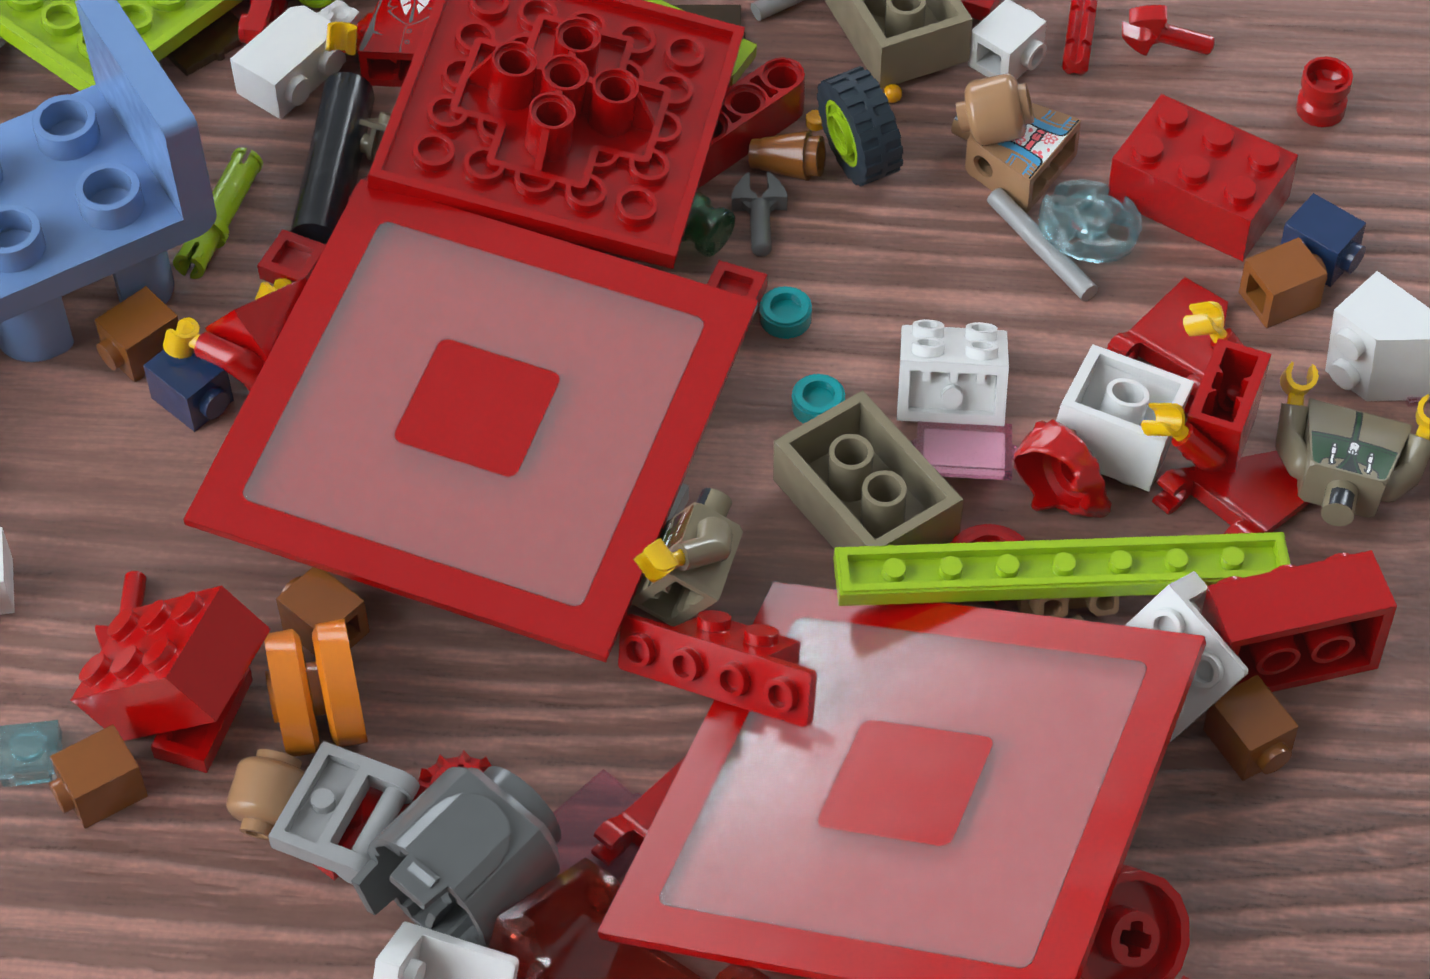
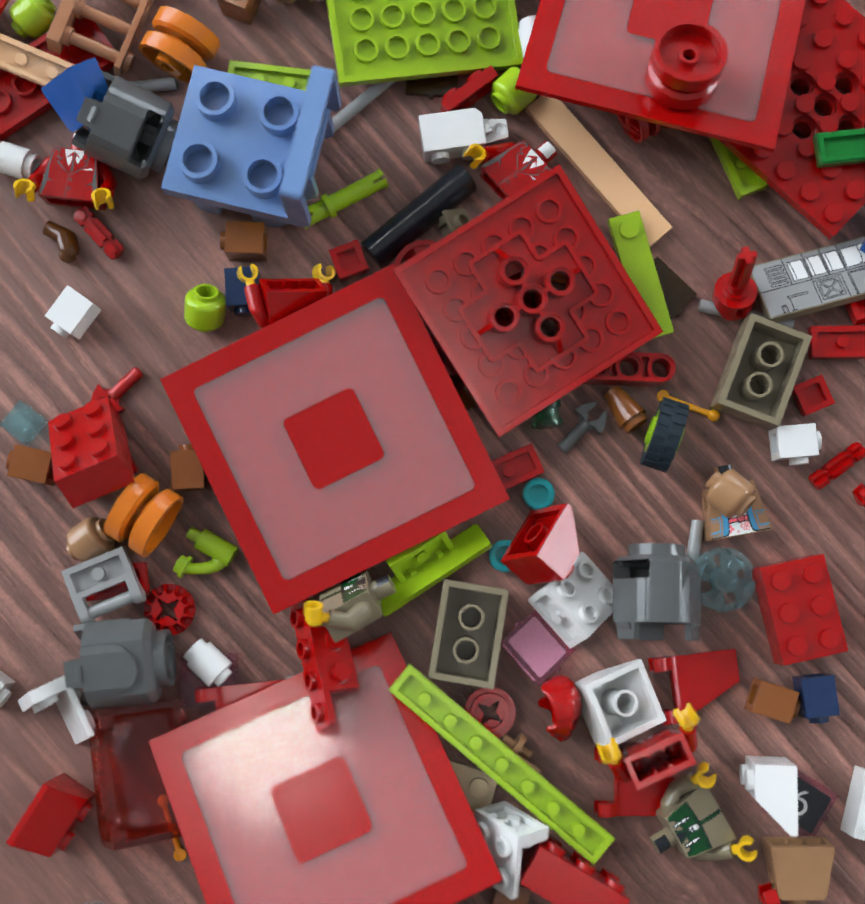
camera: 45 degrees right, 30 degrees up
(160, 430) = (205, 308): none -> lime head
(437, 676) = (212, 545): none -> lime plant
(581, 791) = (208, 663): none -> white brick
(739, 459) = (430, 563): none -> lime bracket
(853, 327) = (544, 546): none -> red slope
(1030, 267) = (656, 589): none -> dark grey piece

